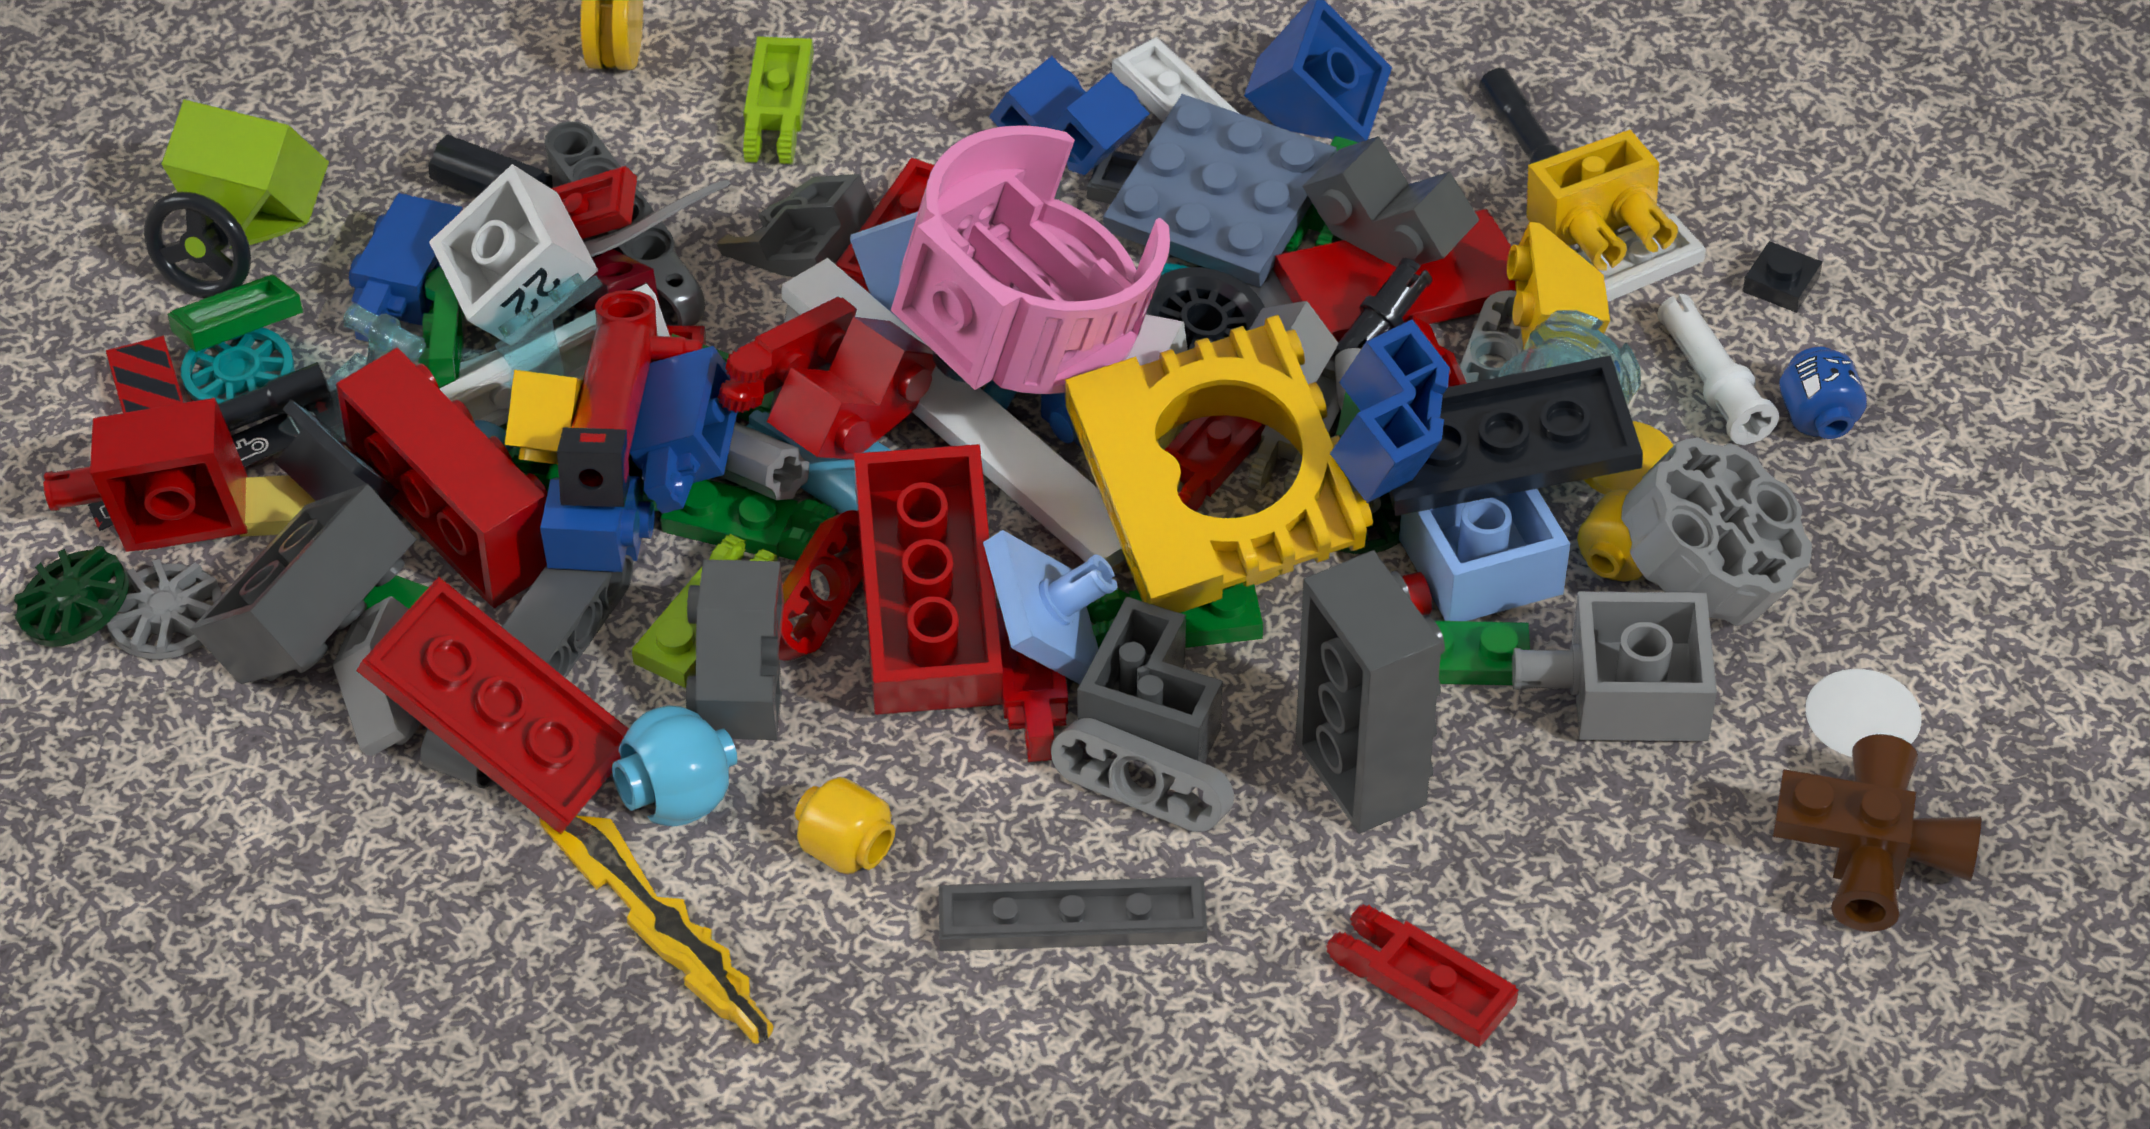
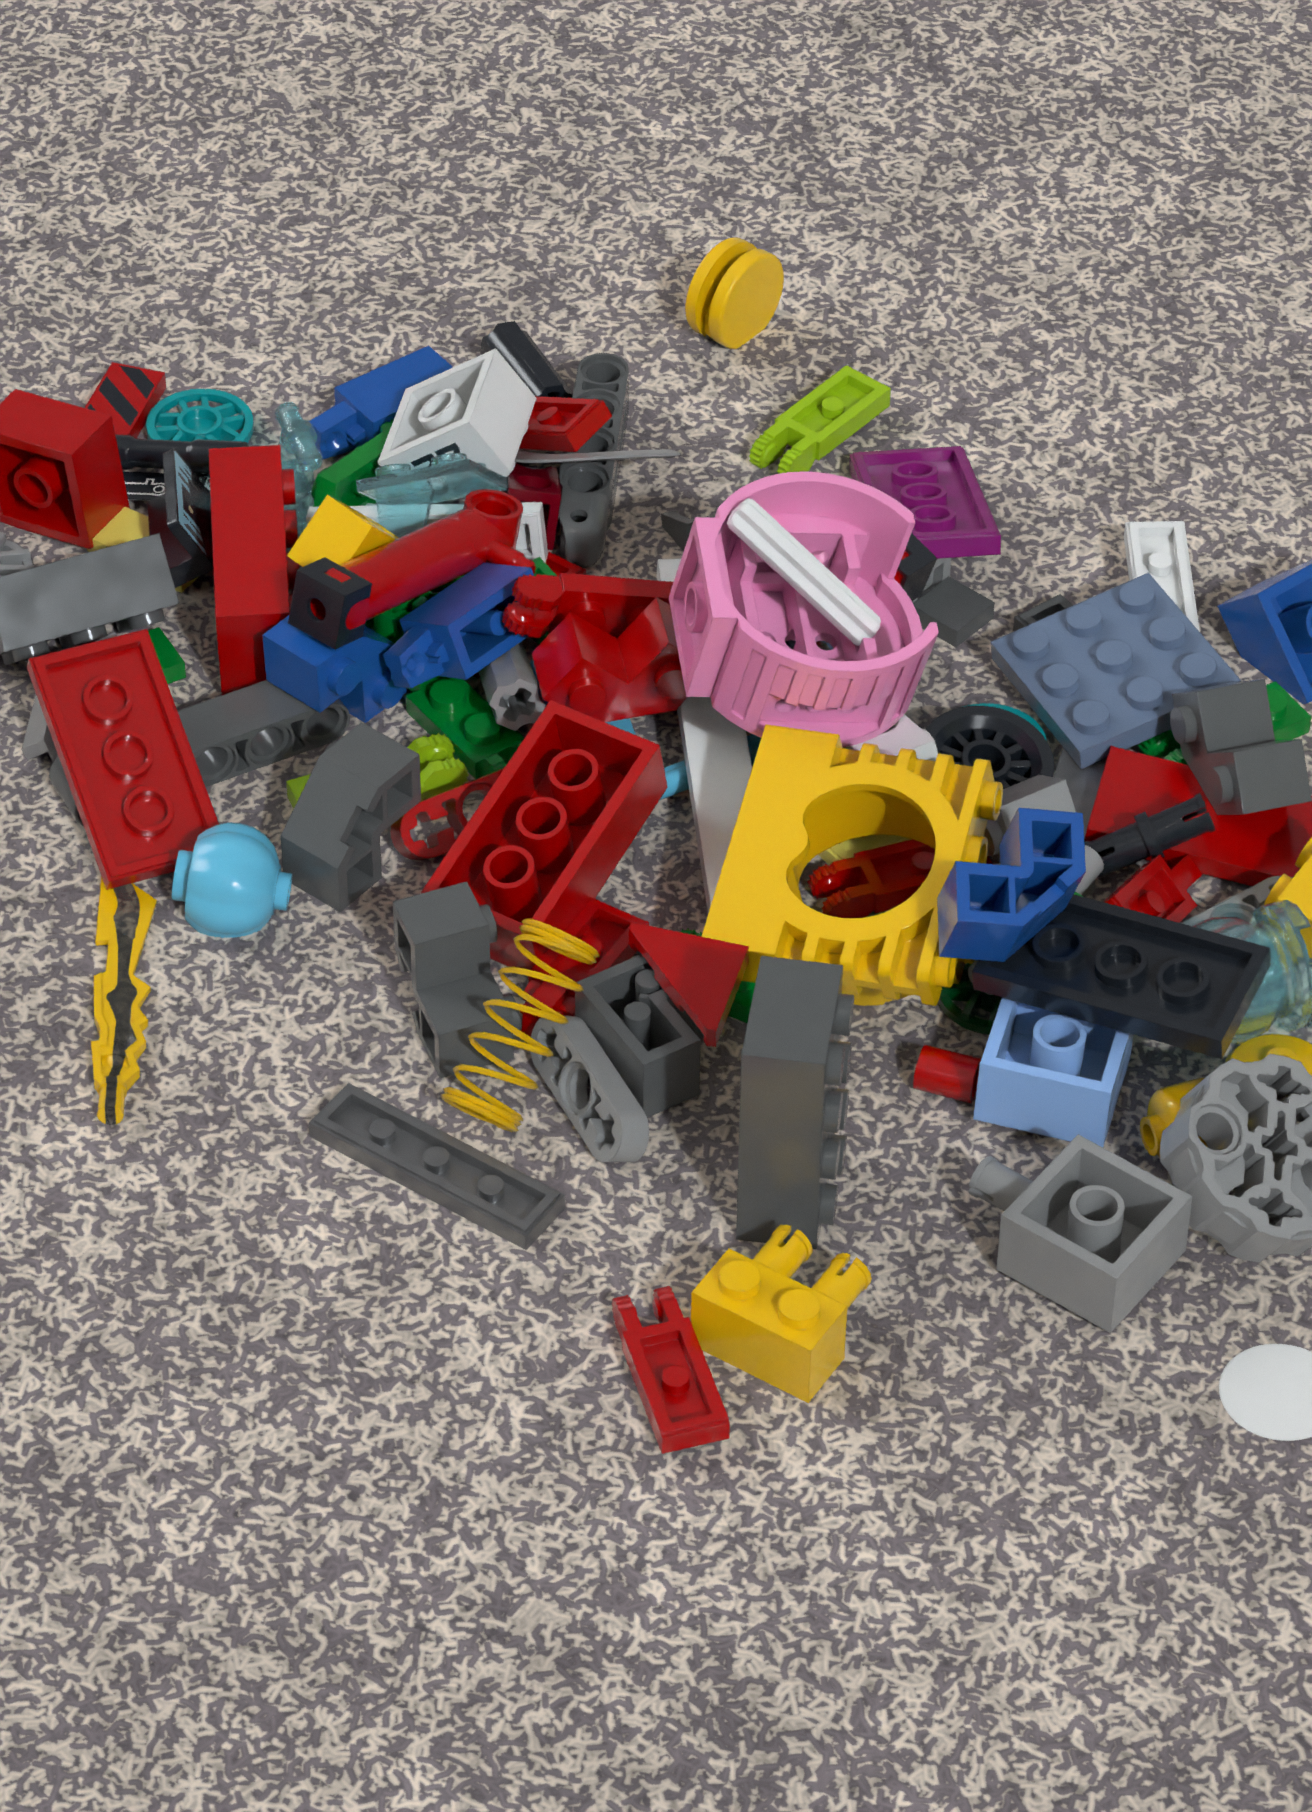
camera: 35 degrees right, 5 degrees down
(234, 312) = (232, 380): green tile -> none
(239, 188) = (305, 283): lime piece -> none
(844, 825) = (317, 997): yellow head -> none
(921, 115) = (940, 493): none -> magenta tile
(975, 765) = (446, 949): none -> dark grey brick
(1020, 228) = (803, 571): none -> white axle
(1048, 603) = (608, 891): light blue tile -> none
(1055, 100) = (1044, 548): blue brick -> none
(1085, 839) = (499, 1113): none -> yellow piece
(1173, 625) = (694, 972): none -> red tile
(1472, 885) = (772, 1324): none -> yellow brick
(1480, 651) = (959, 1140): green plate -> none
(1873, 830) = (1166, 1475): reddish brown brick -> none

